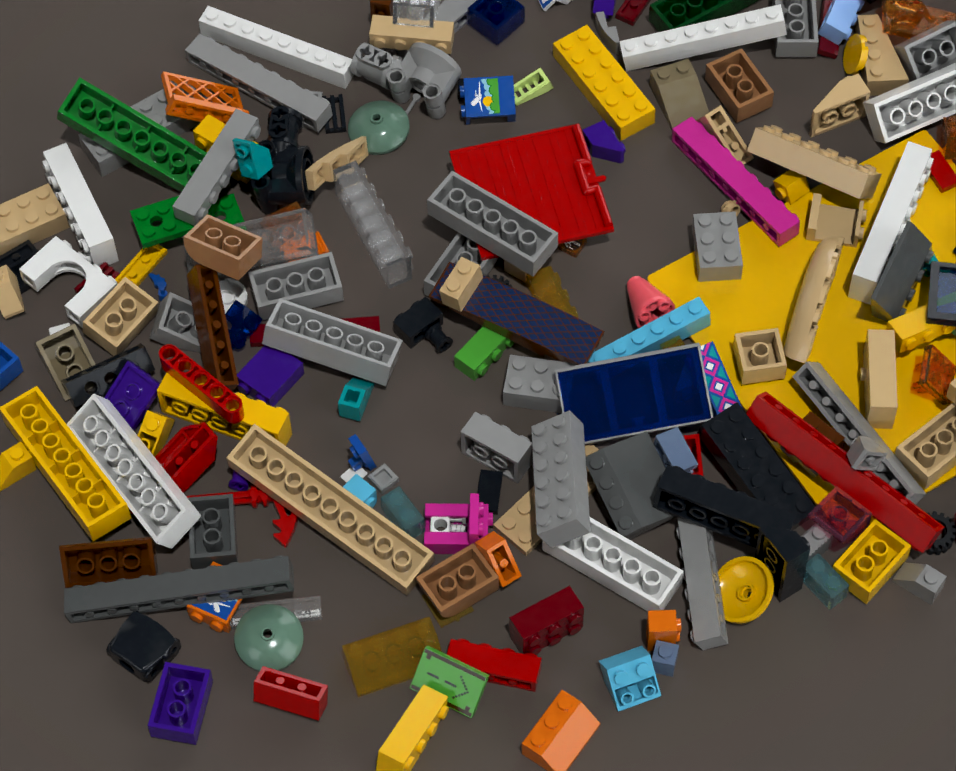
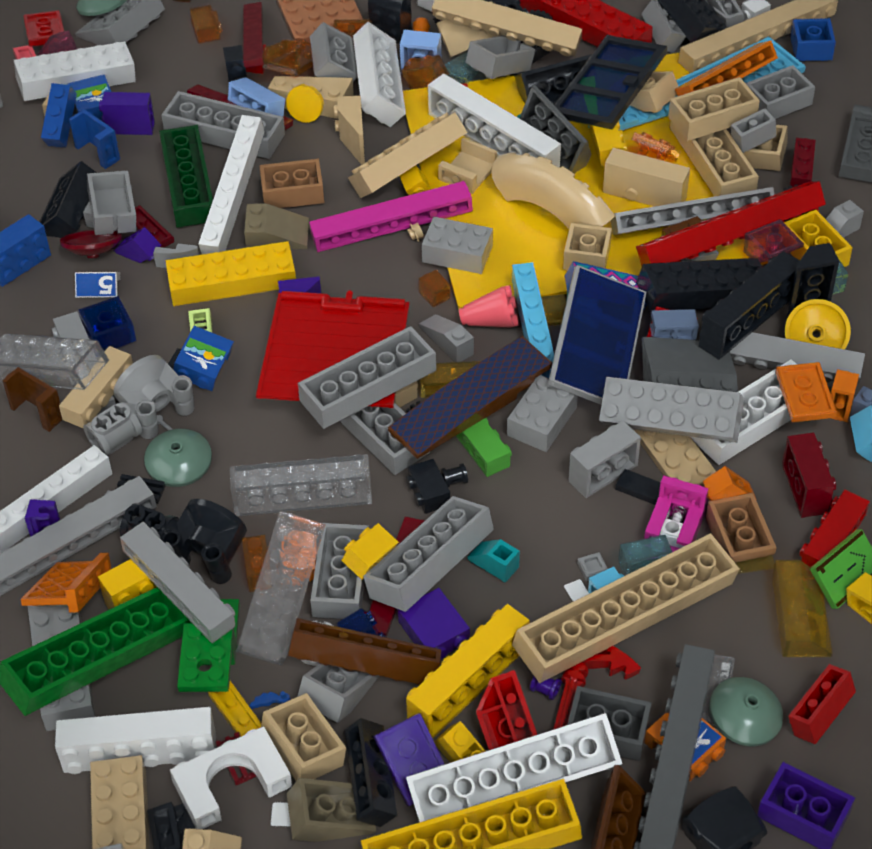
camera: 70 degrees left, 10 degrees down
(198, 375) = (439, 675): red beam -> none
(223, 247) = (290, 595): medium nougat brick -> none
(252, 158) = (188, 545): teal slope -> none
(261, 52) = (40, 515): none -> dark purple hinge
(308, 292) = (368, 550): none -> yellow brick
(323, 168) = (212, 487): tan slope -> none
(361, 456) = (567, 567): blue hinge -> none
(461, 284) = (426, 418): tan brick -> none
(603, 280) = (449, 337): none -> light grey slope
(641, 591) = (805, 392): none -> orange tile
(660, 248) = (434, 288): none -> clear orange brick
(718, 124) = (325, 206): tan slope -> none
(865, 454) = (727, 201): light grey slope -> none

